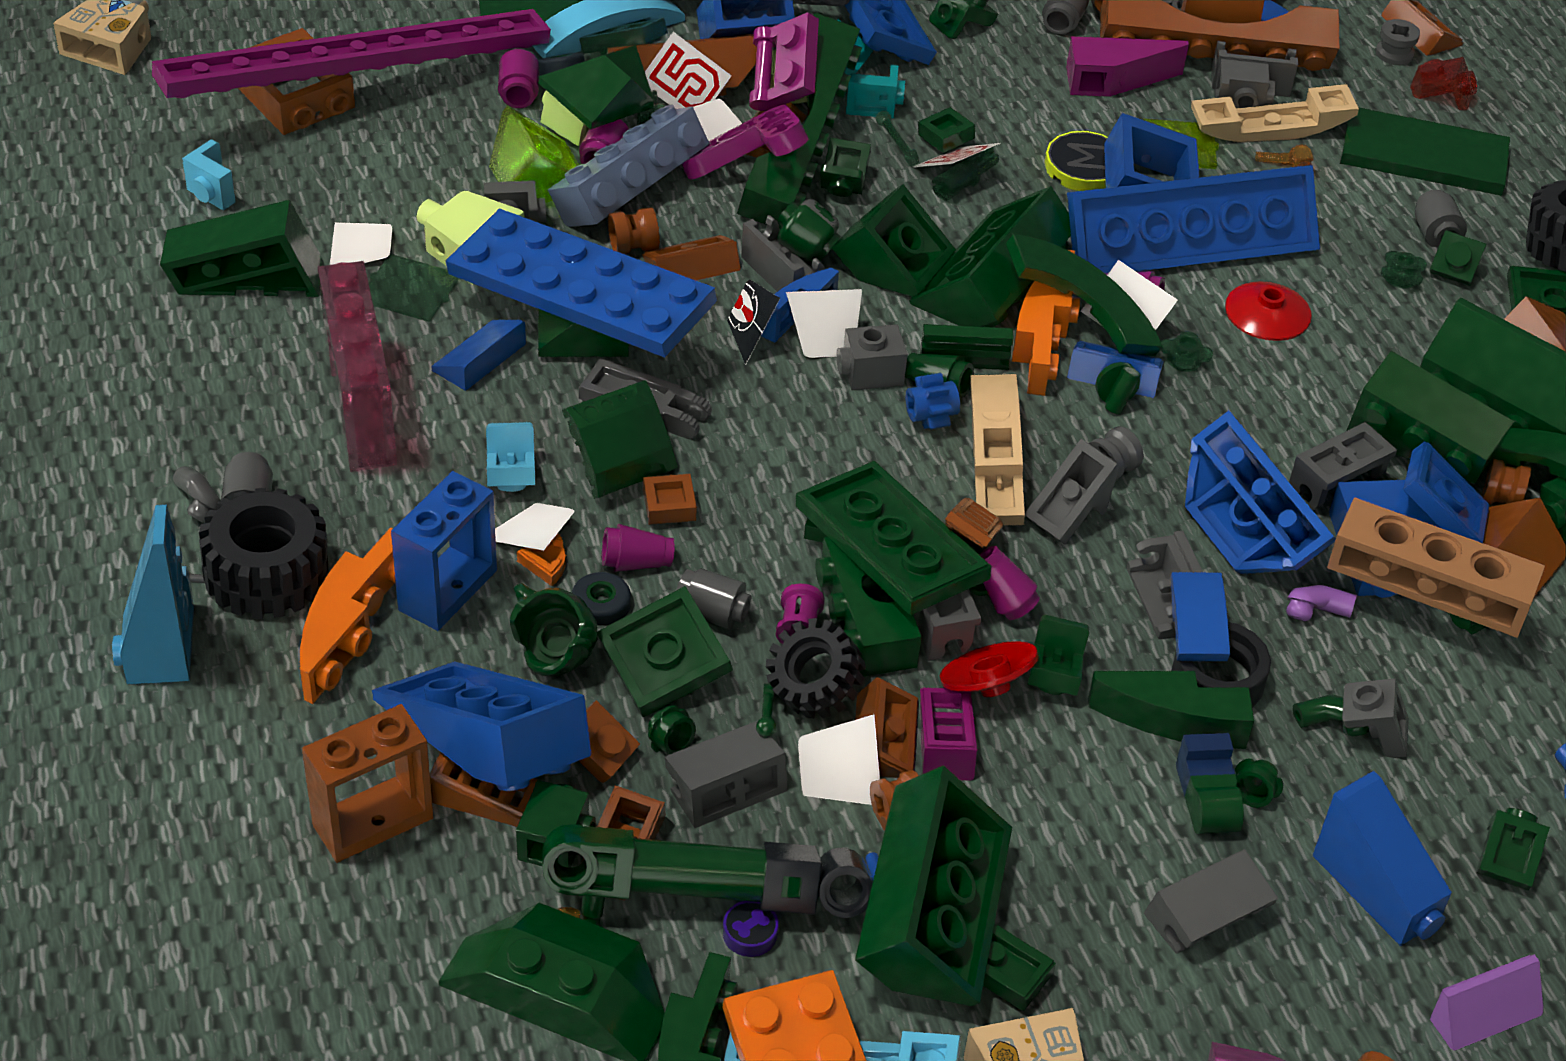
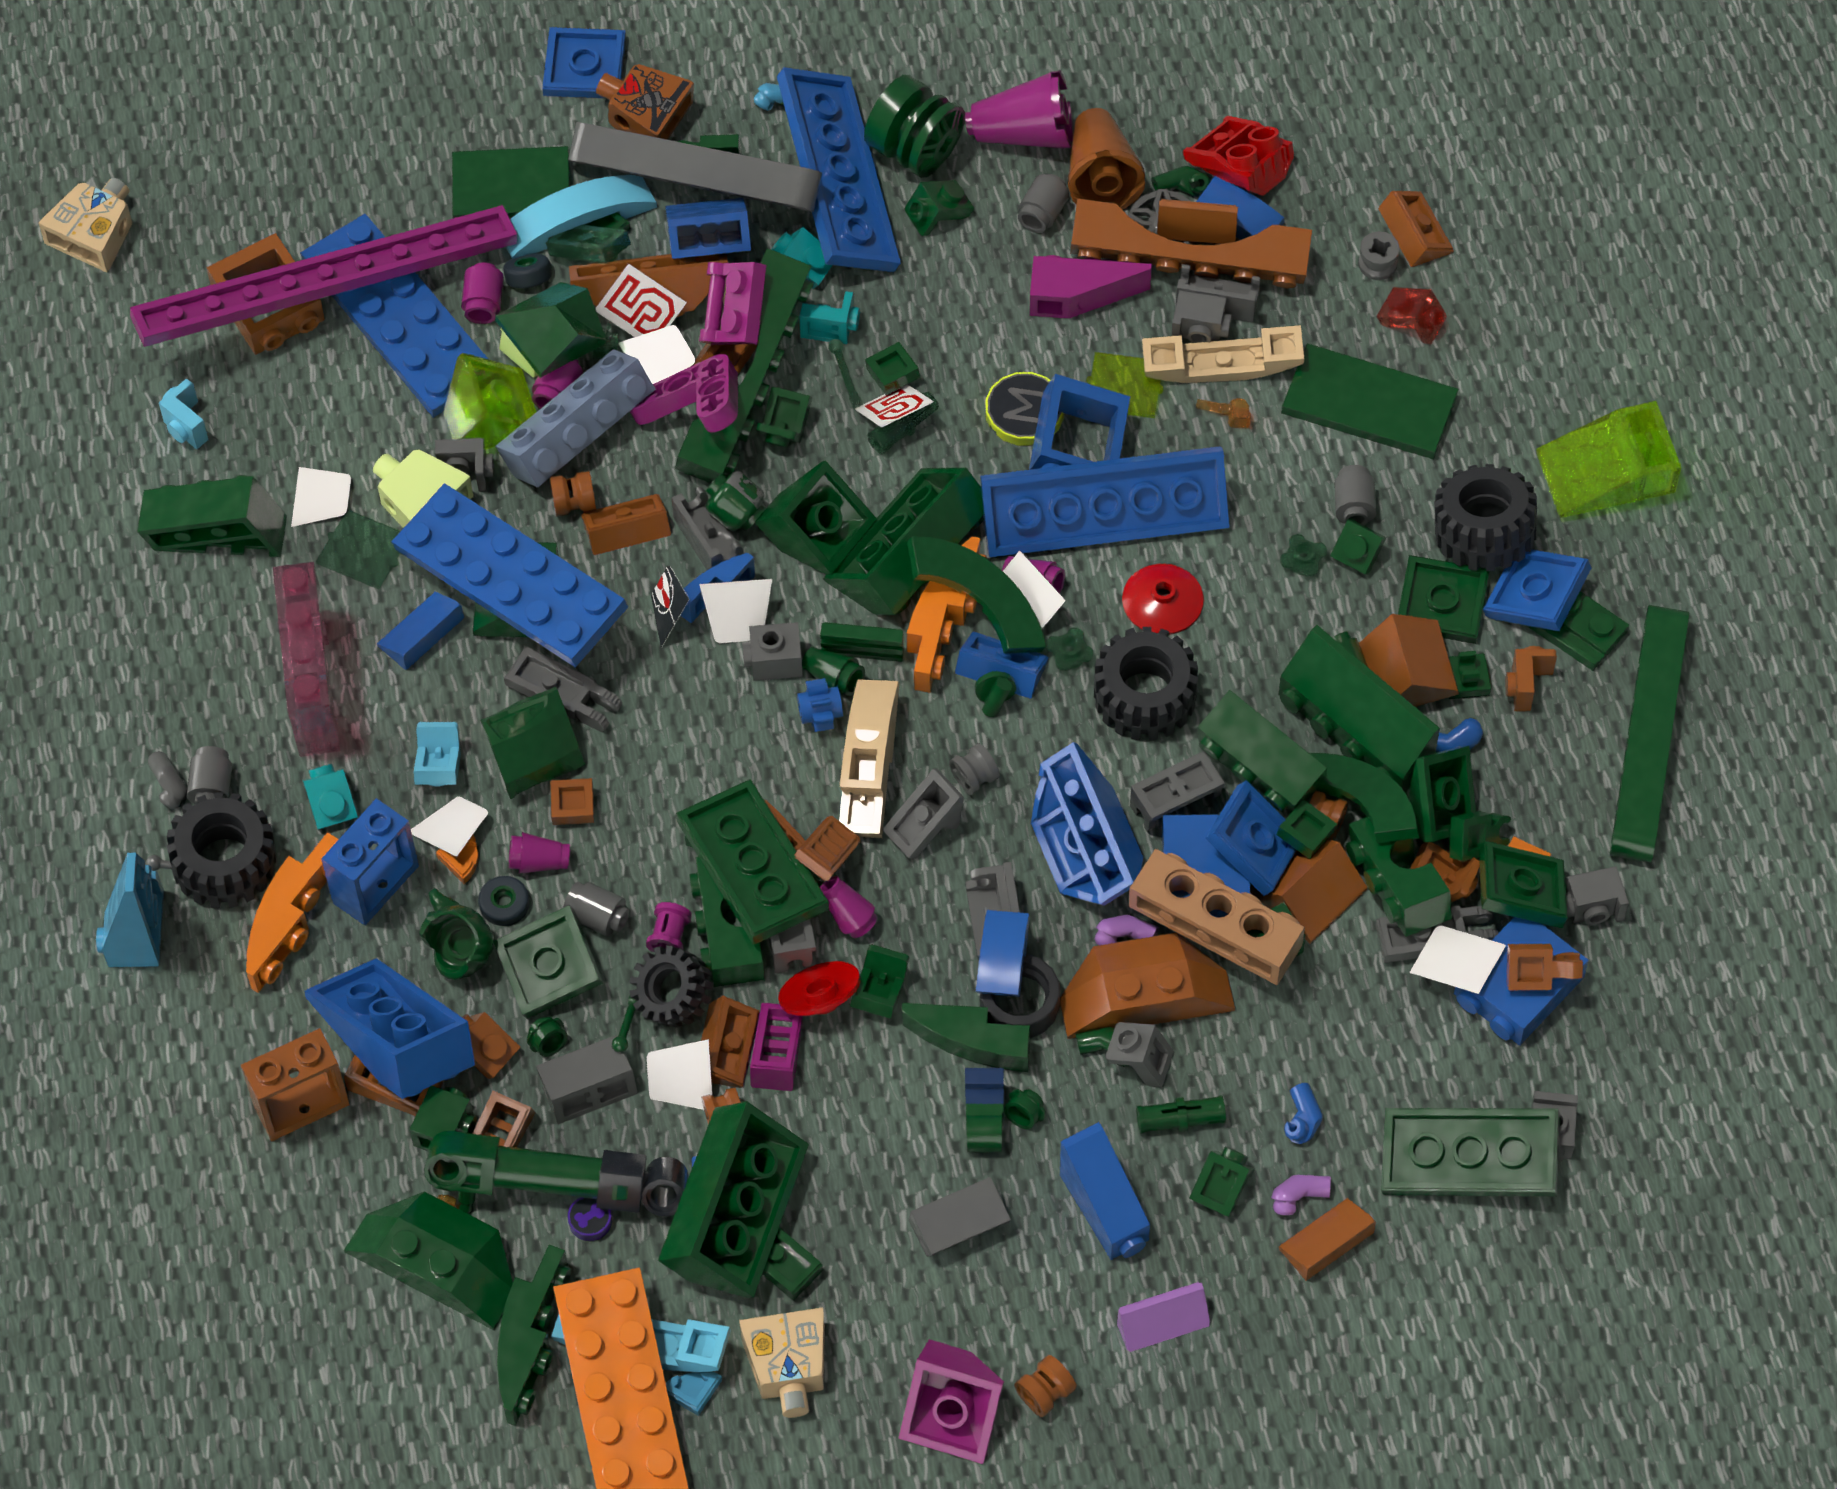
camera: 10 degrees right, 15 degrees up
(386, 498) = (329, 796): none -> teal bracket
(439, 109) = (402, 322): none -> blue plate
(1280, 372) = (1140, 711): none -> black tyre
(1355, 644) = (1144, 984): none -> dark orange wedge
(1441, 780) = (1181, 1114): none -> dark green pin
(1500, 488) = (1306, 829): none -> dark green plate

